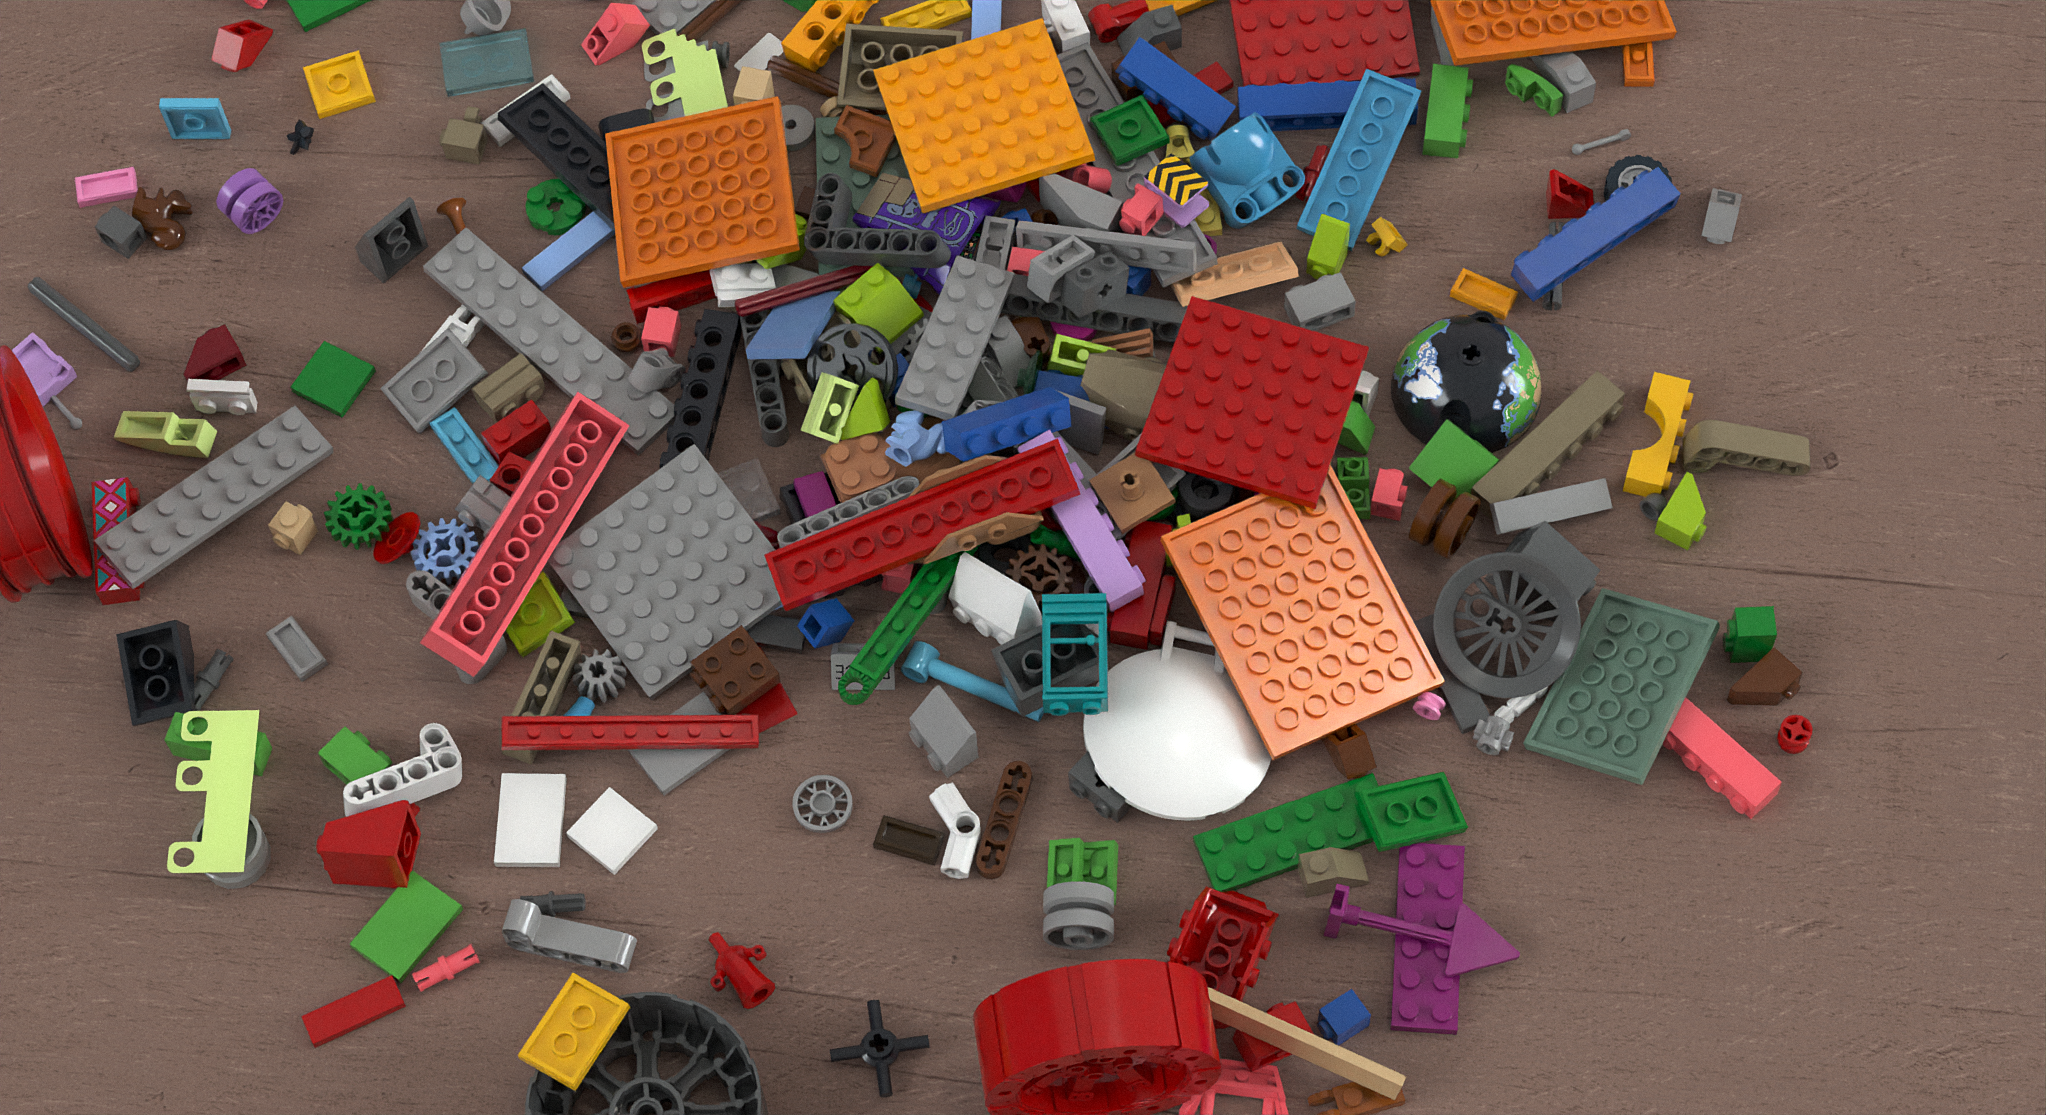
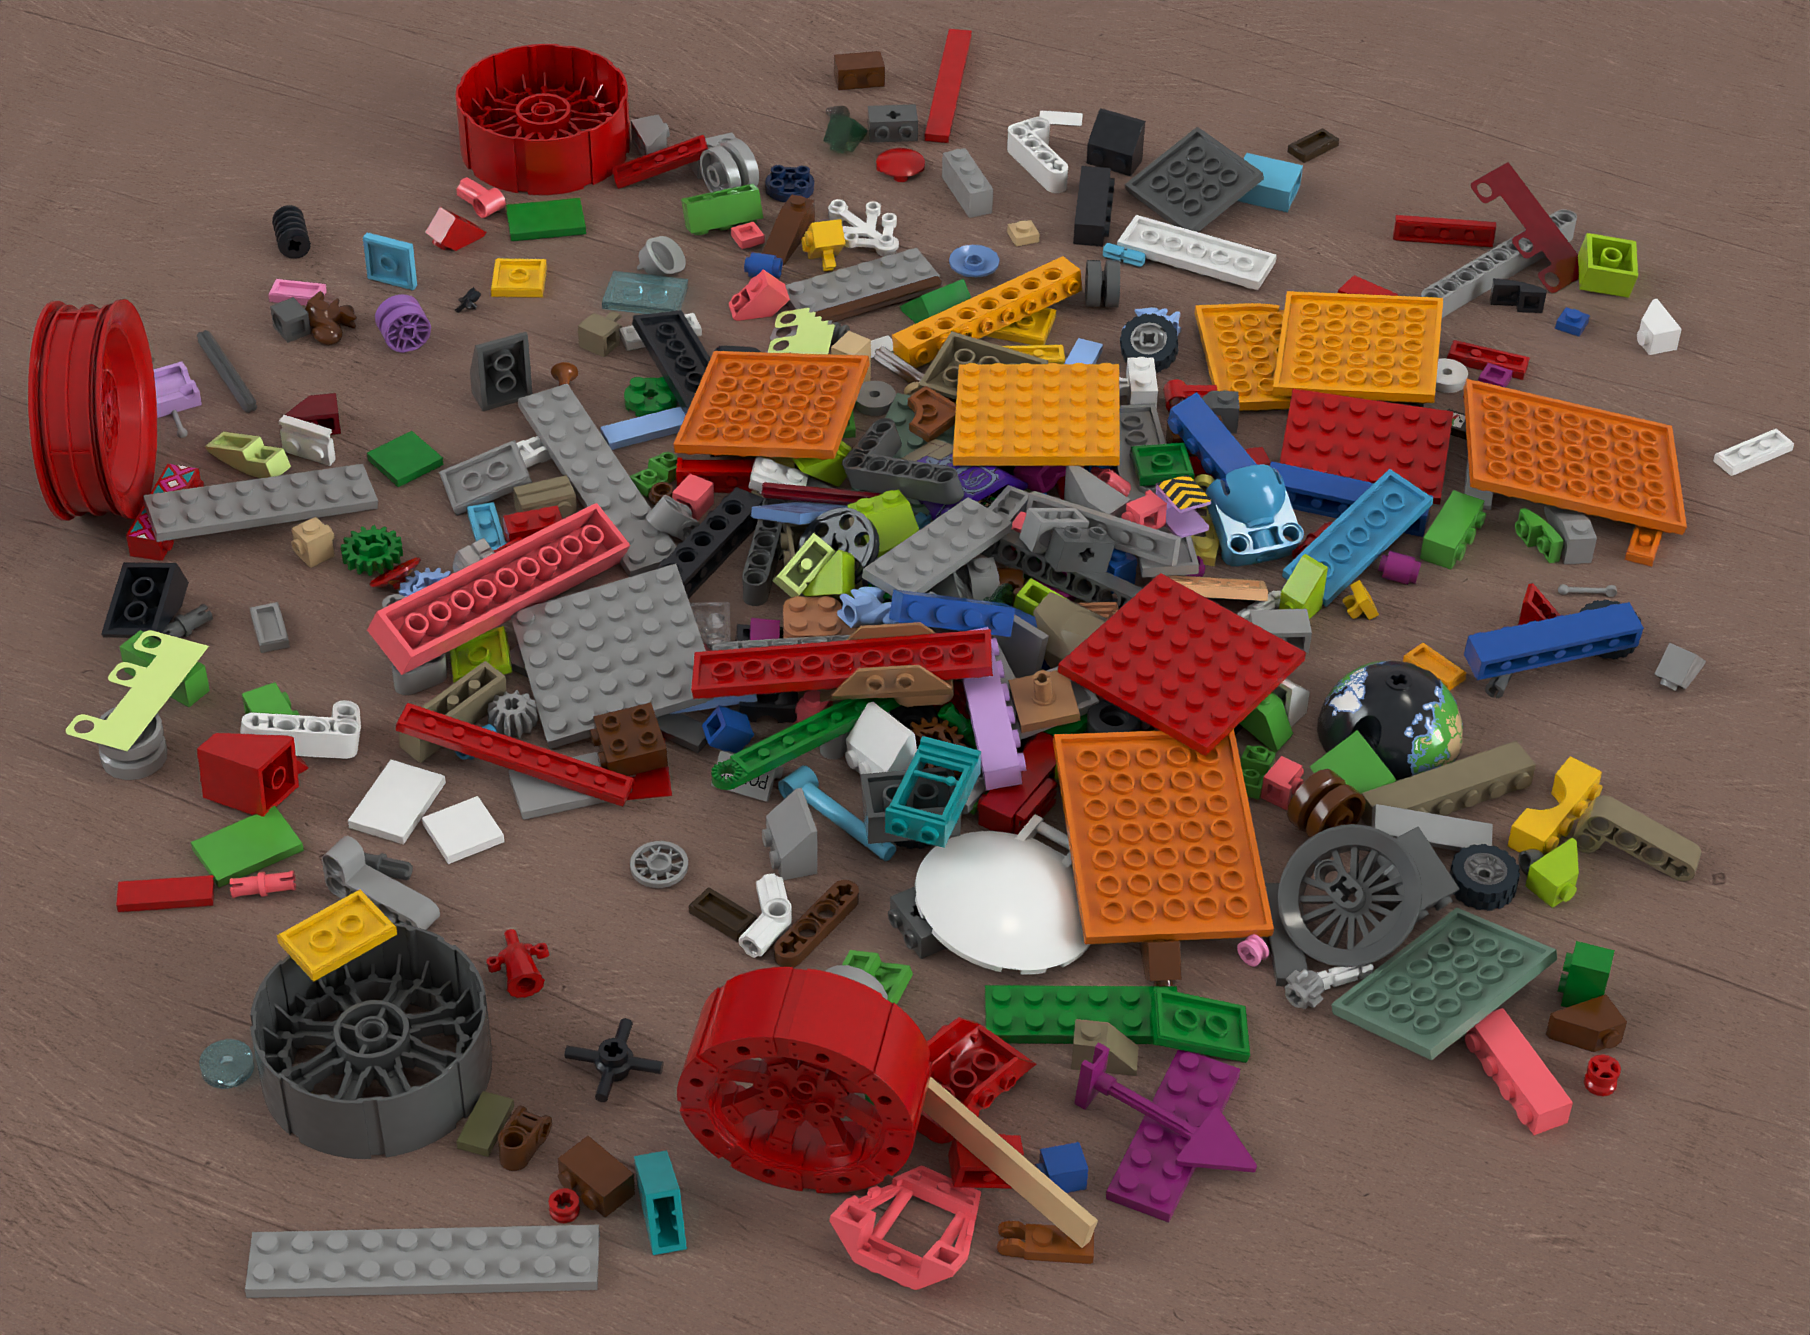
camera: 15 degrees right, 20 degrees down
(61, 107) = (291, 232): none -> black piece
(608, 311) = (660, 469): none -> bright green slope
(1278, 292) = (1273, 601): none -> white axle
(1409, 179) = (1399, 567): none -> magenta brick
(1612, 524) = (1485, 877): none -> black wheel

